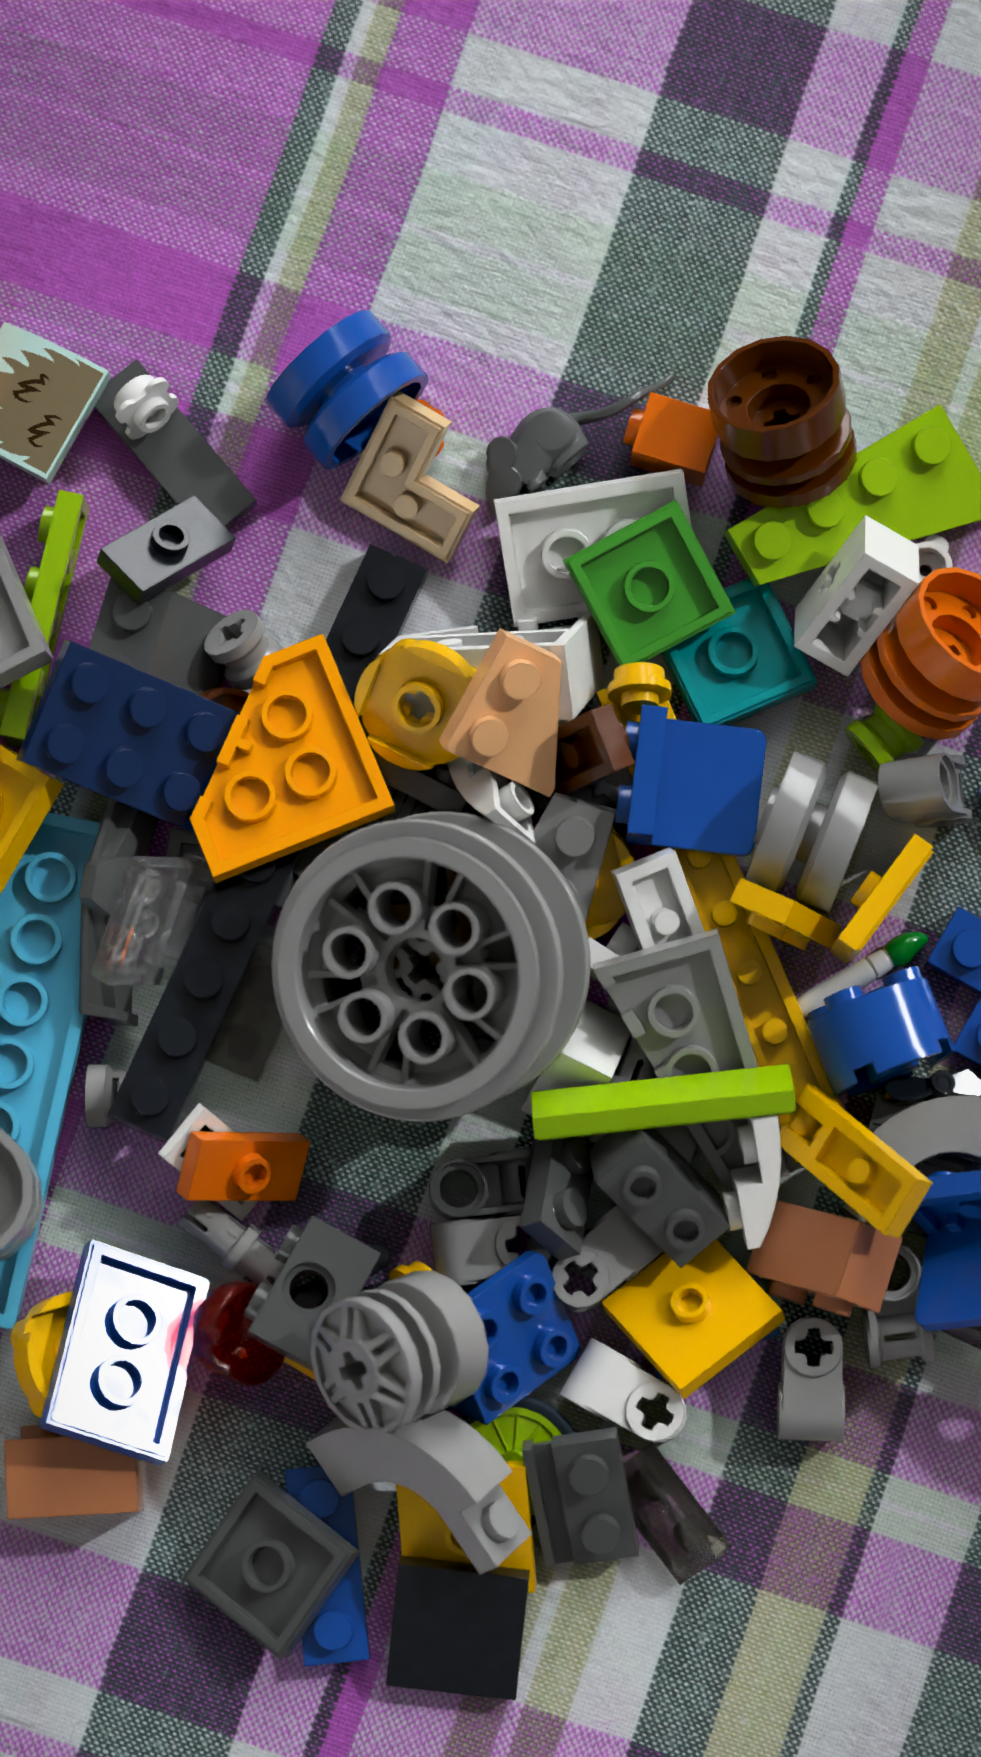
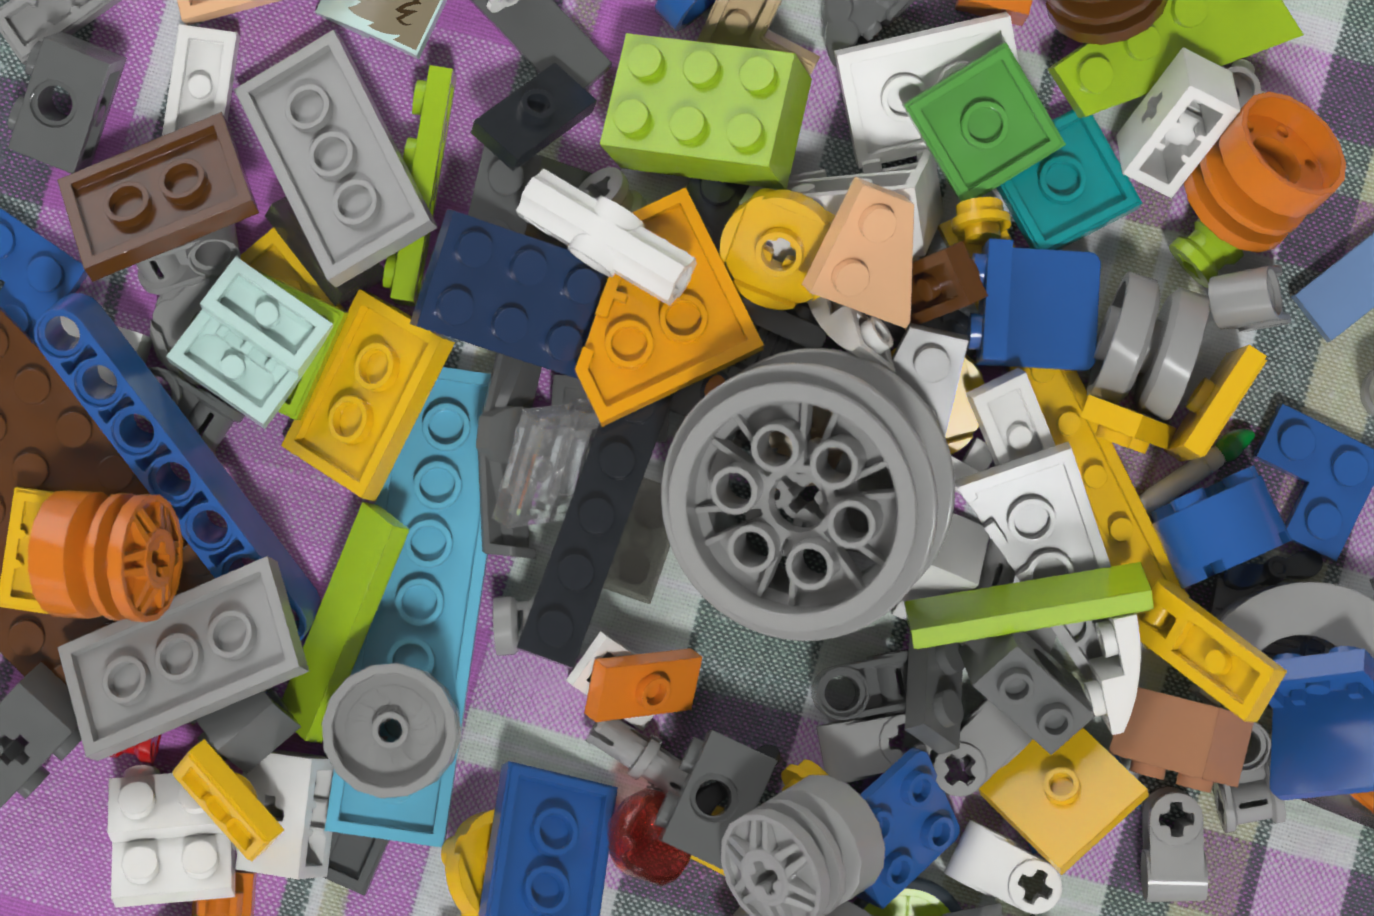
camera: 10 degrees left, 5 degrees up
(232, 679) = (606, 237): none -> white piece
(351, 554) = (706, 111): none -> lime brick

